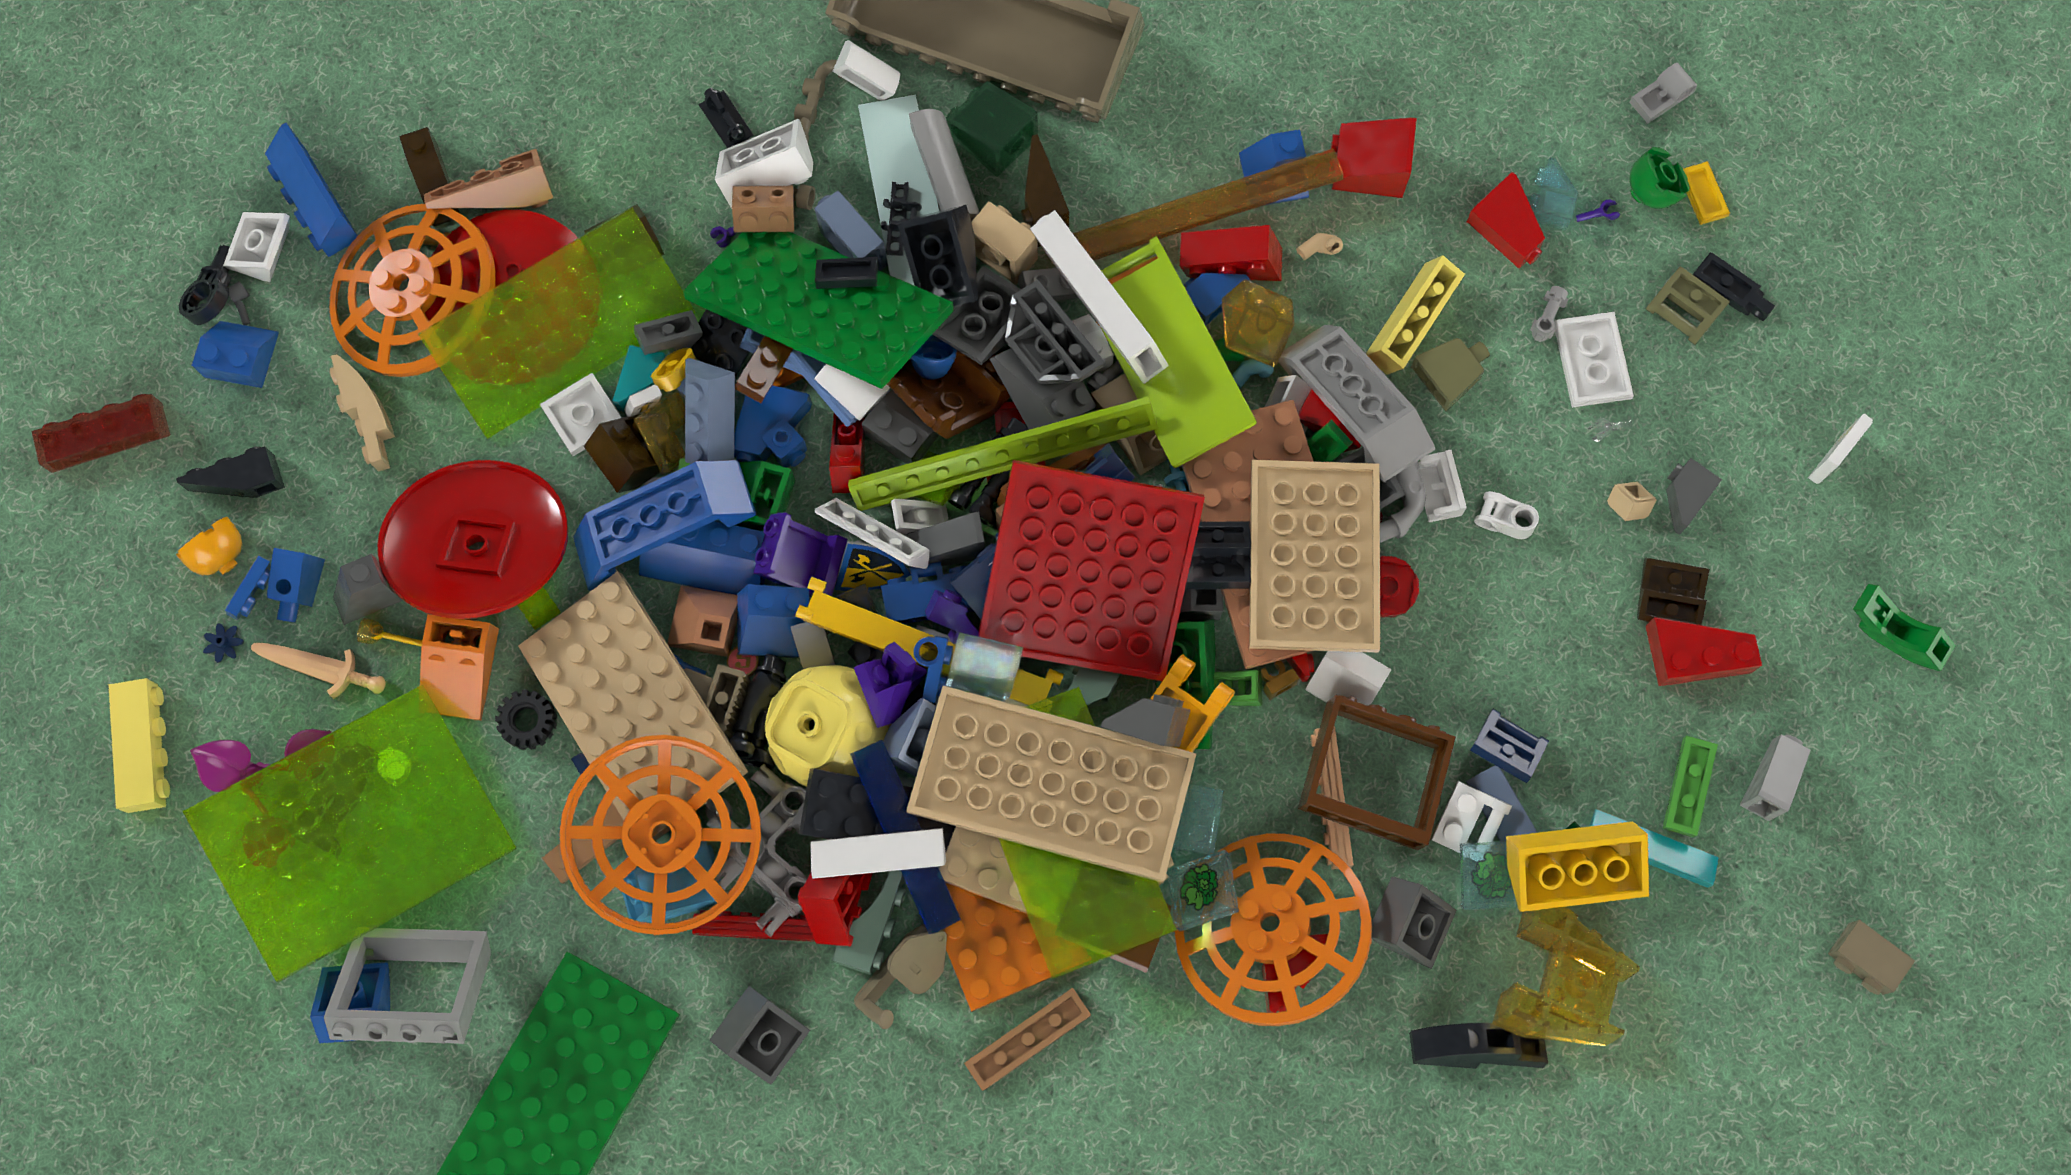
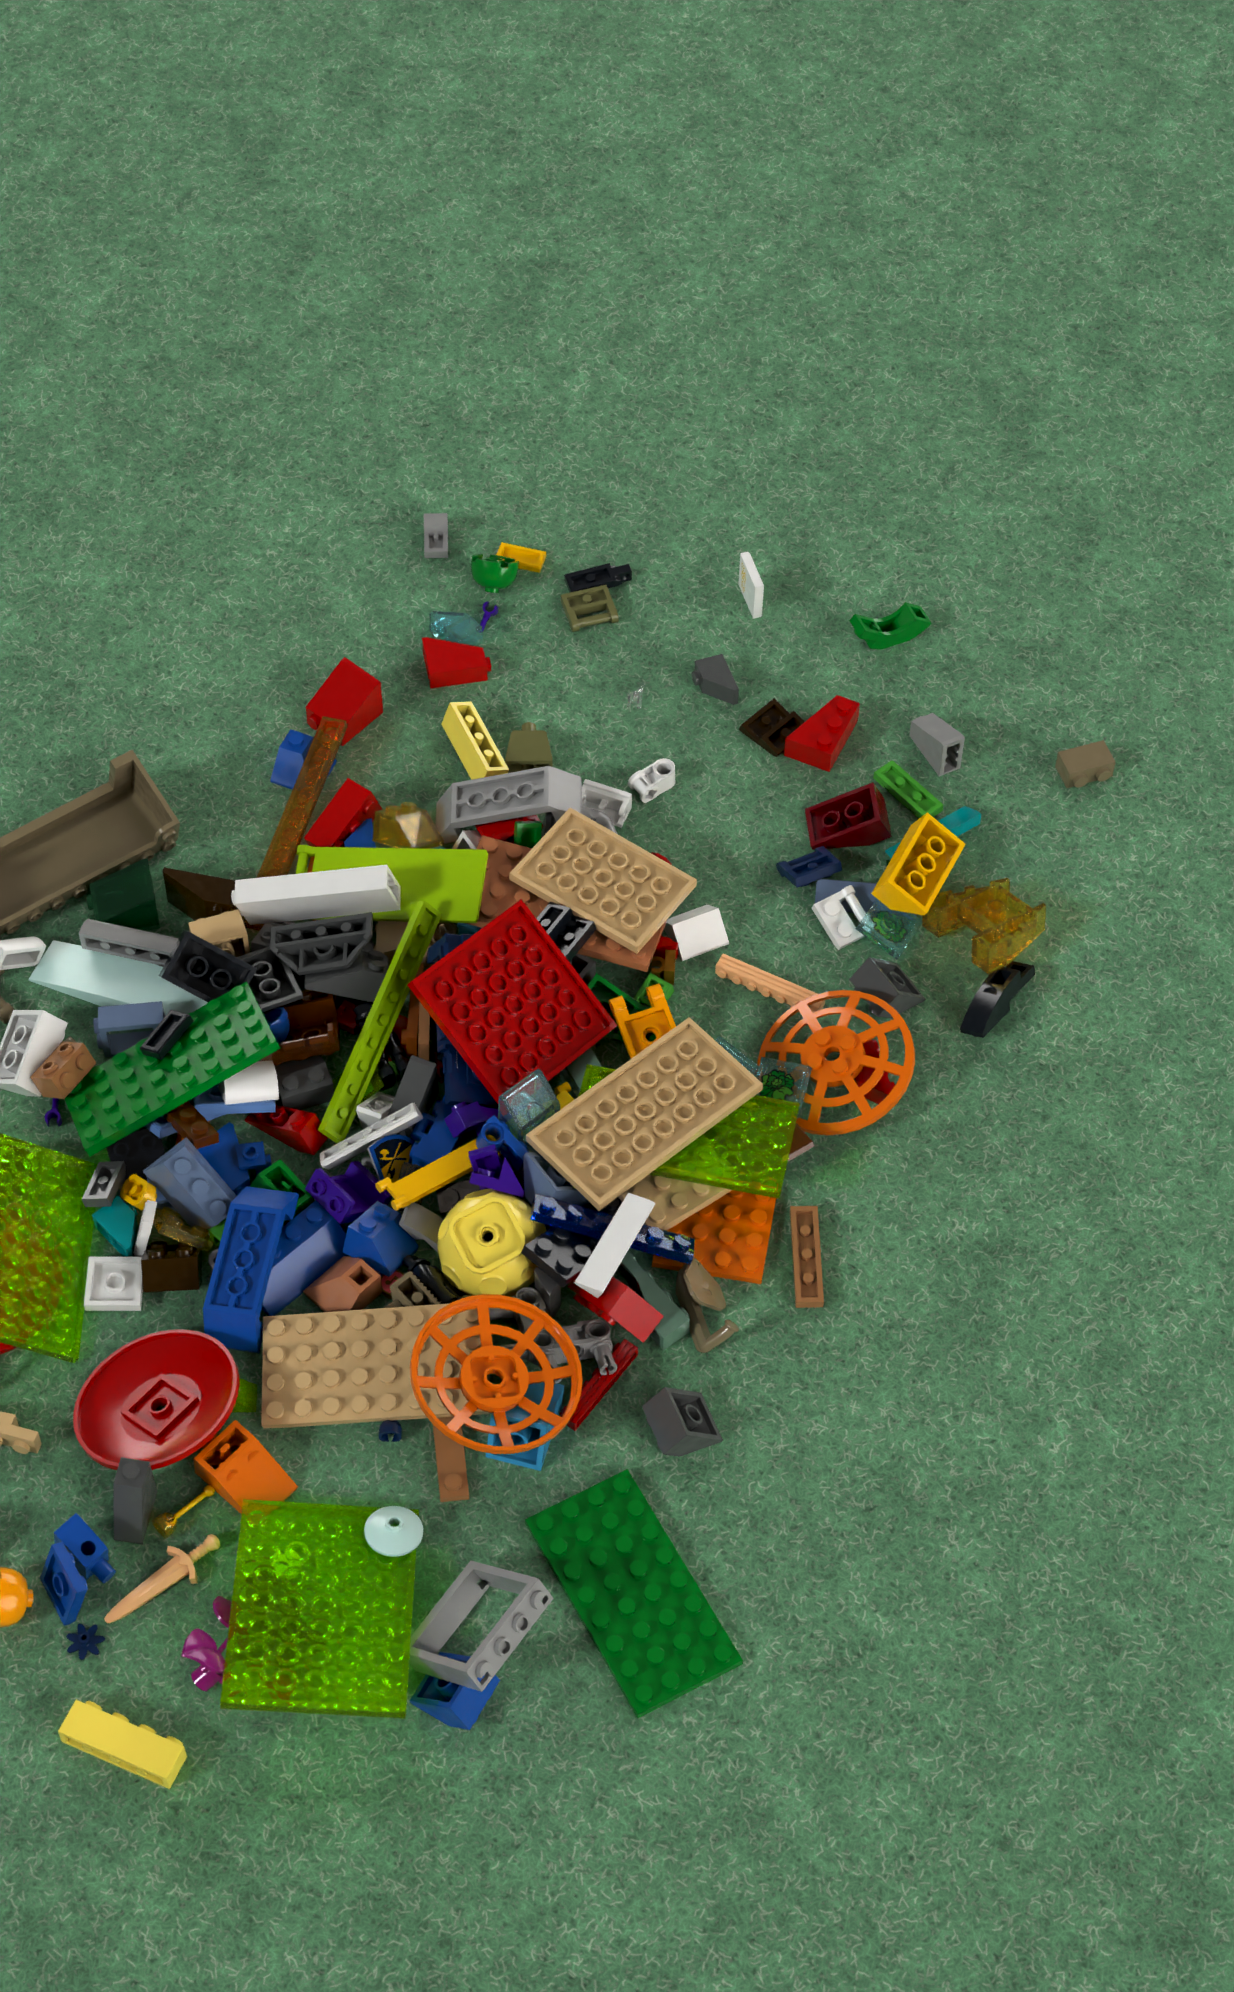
camera: 60 degrees left, 20 degrees down
(478, 856) = (393, 1540): none -> light aqua dish
(513, 706) = (324, 1435): black tyre -> none
(898, 203) = (153, 992): black piece -> none
(1152, 720) = (650, 1022): dark grey slope -> none
(1320, 243) = (378, 771): tan arm -> none
(1368, 822) = (827, 953): reddish brown window -> none
(1545, 326) = (541, 686): light grey bar -> none
(1593, 359) = (583, 677): white tile -> none
(1603, 748) = (849, 819): none -> dark red slope
(1631, 501) = (696, 712): tan slope -> none

